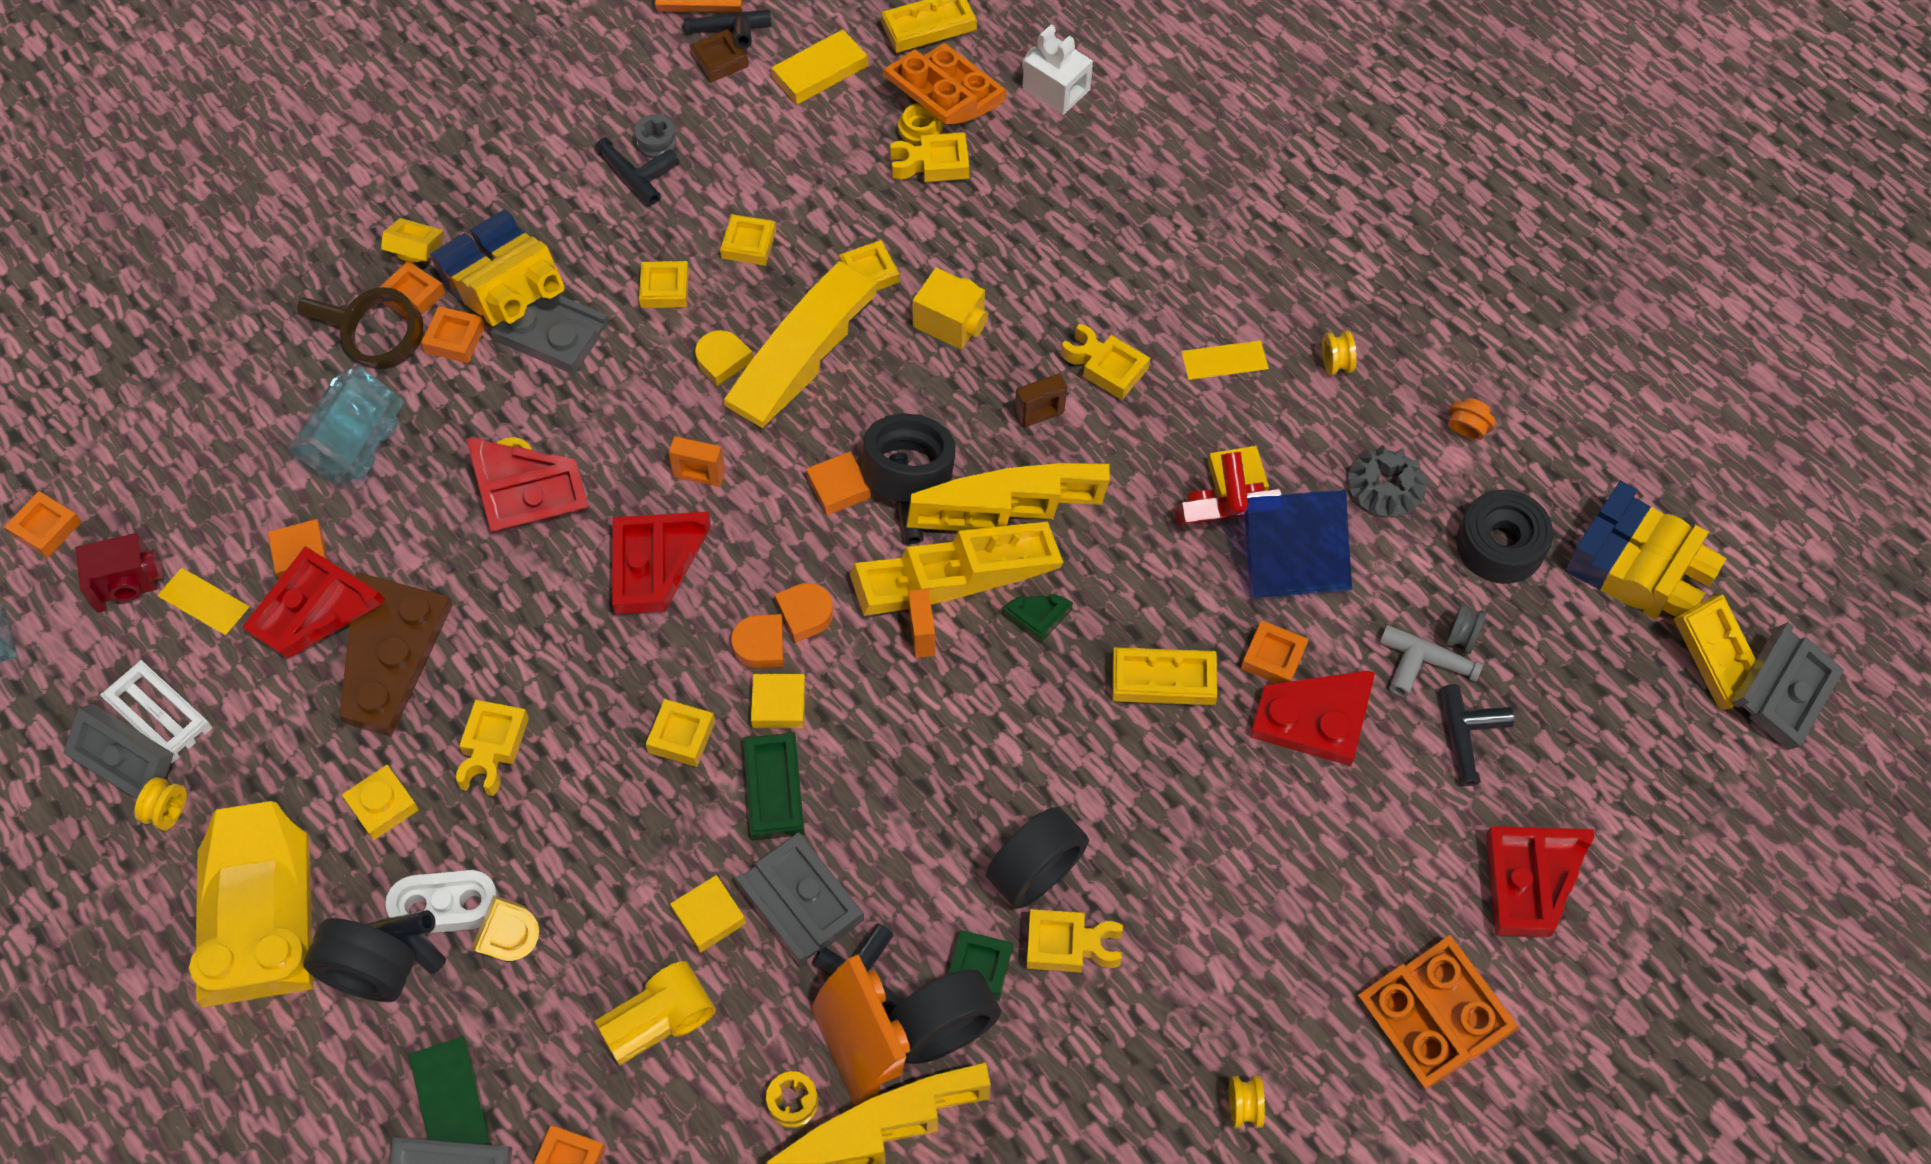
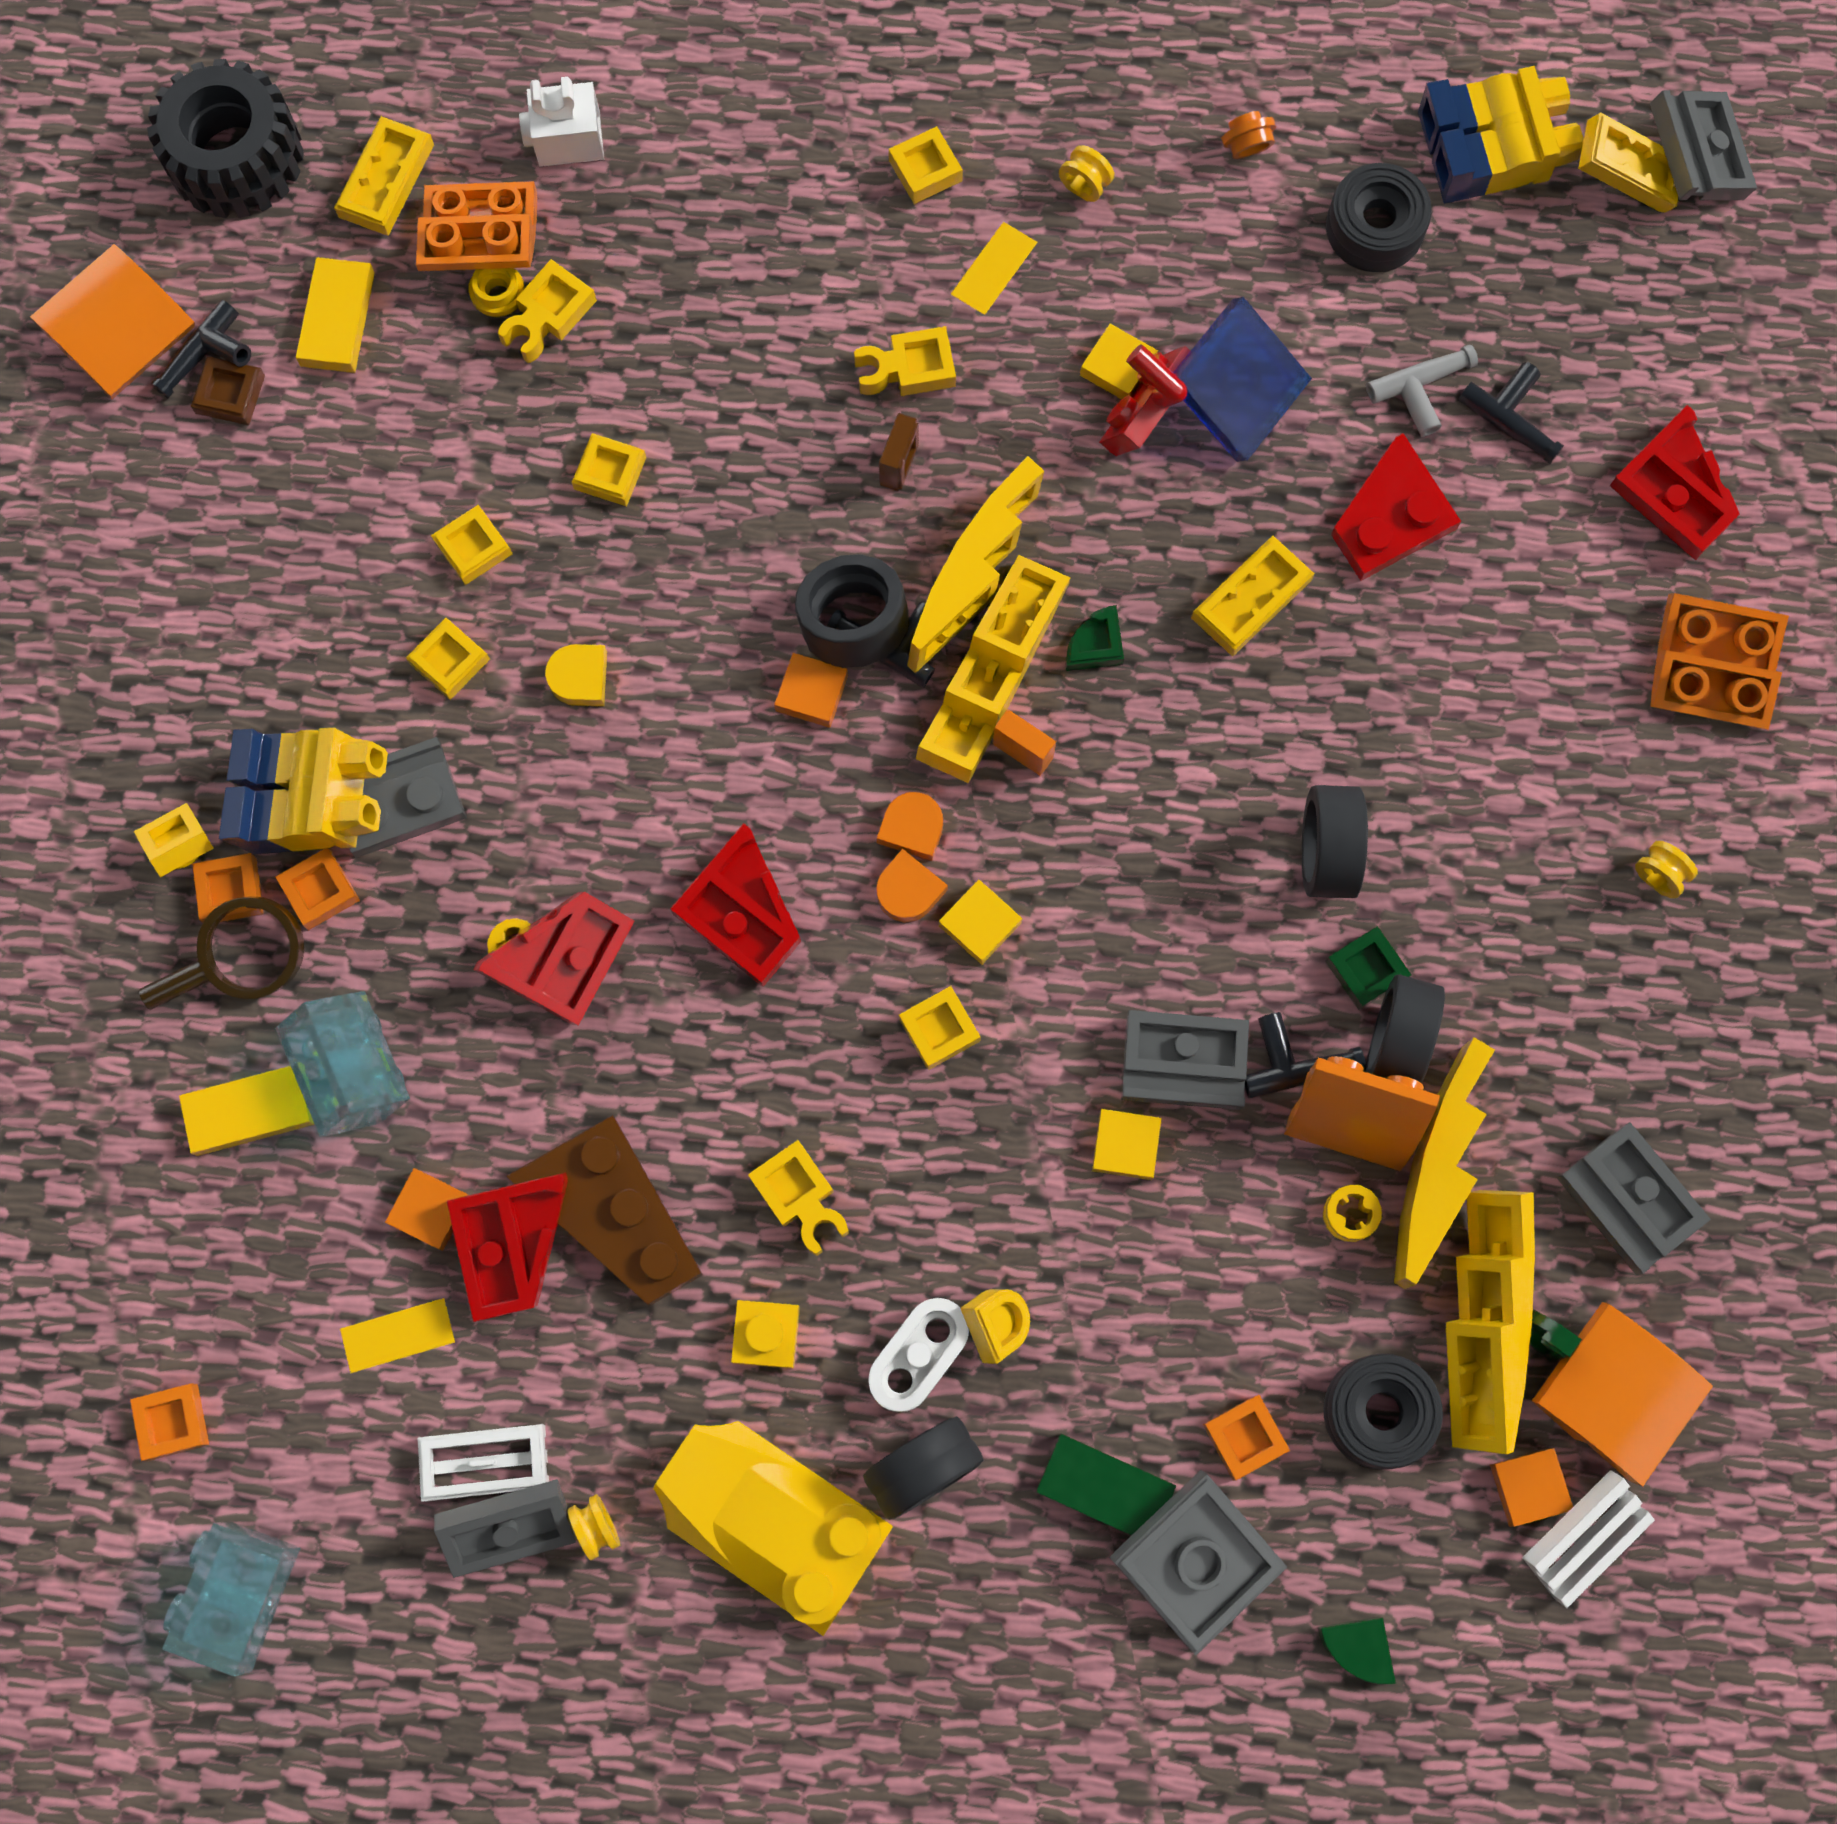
camera: 45 degrees left, 15 degrees up
(117, 570) = (300, 1389): dark red brick -> none
(271, 404) = (244, 1111): none -> yellow tile
(411, 930) = (936, 1403): black piece -> none
(638, 178) = (299, 582): black piece -> none
(660, 126) = (258, 513): dark grey bush -> none
(669, 1005) = (1186, 1244): yellow piece -> none
(697, 461) = (680, 789): orange tile -> none
(773, 786) = (1056, 993): dark green tile -> none
(798, 344) = (642, 597): yellow slope -> none
(950, 308) = (730, 440): yellow brick -> none
(1060, 941) = (1413, 885): yellow plate -> none
(1244, 267) = (925, 165): none -> yellow plate
(1274, 653) = (1310, 492): orange tile -> none
(1386, 498) = (1216, 263): dark grey gear -> none
(1466, 628) = (1431, 327): dark grey bush -> none

